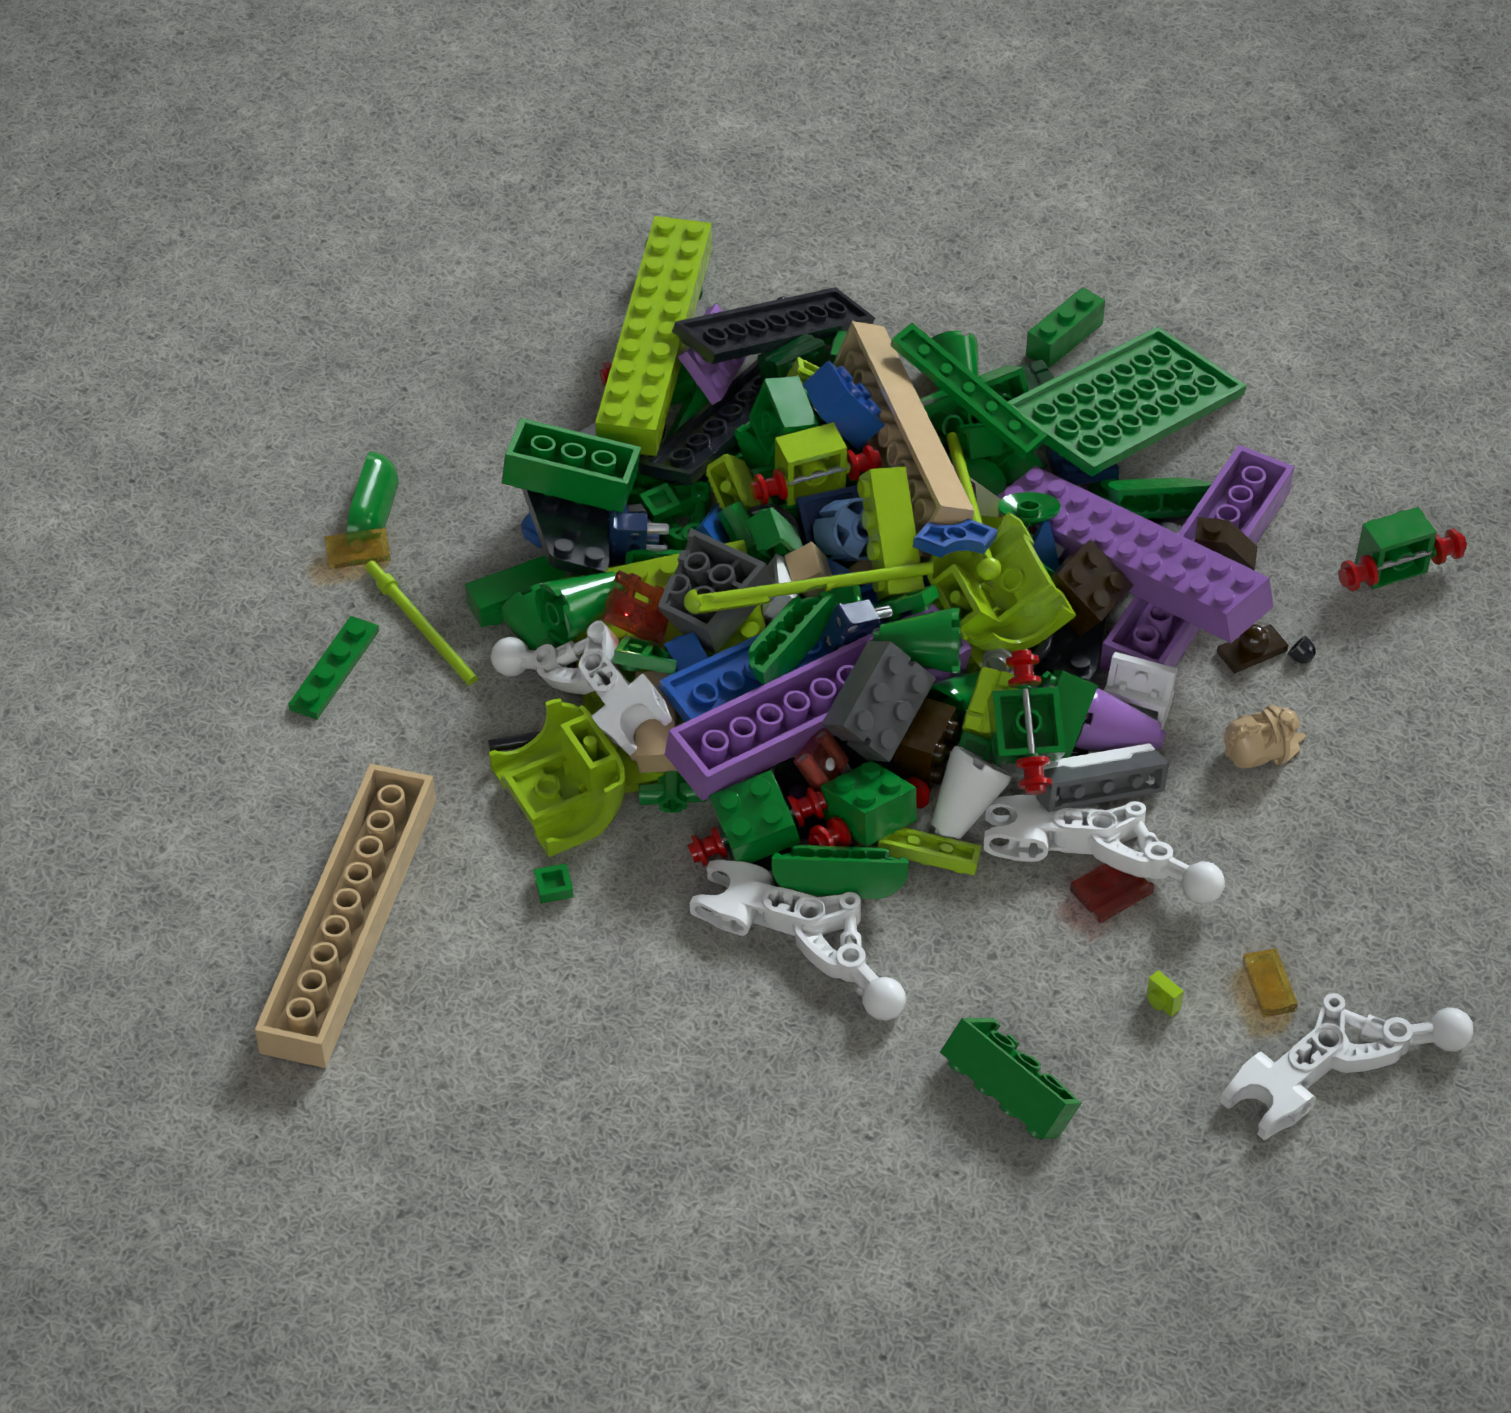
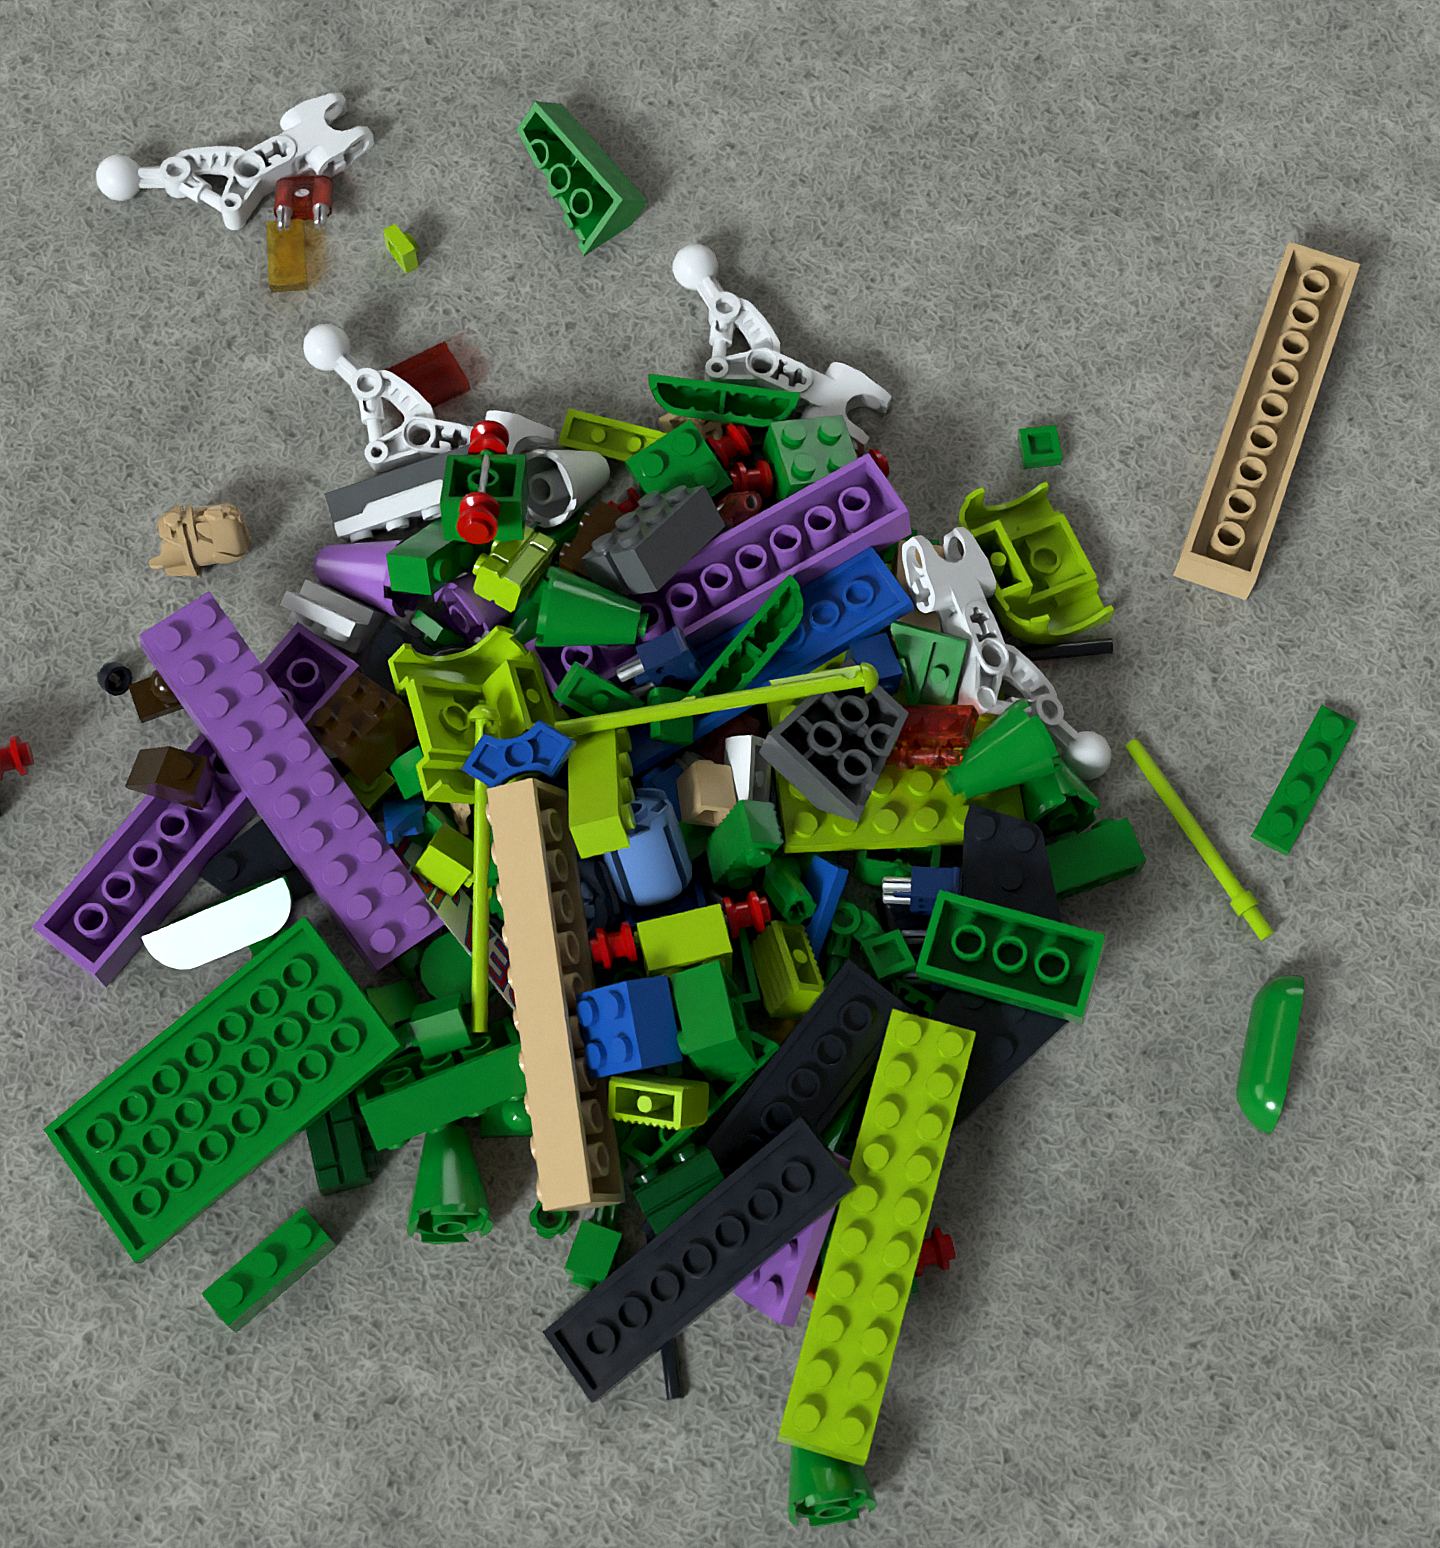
camera: 175 degrees left, 20 degrees up
(357, 548) = (1285, 958): clear yellow plate -> none
(968, 390) = (450, 1054): green plate -> none
(1030, 507) = (385, 859): green dish -> none
(1268, 1030) = (303, 199): none -> clear red piece

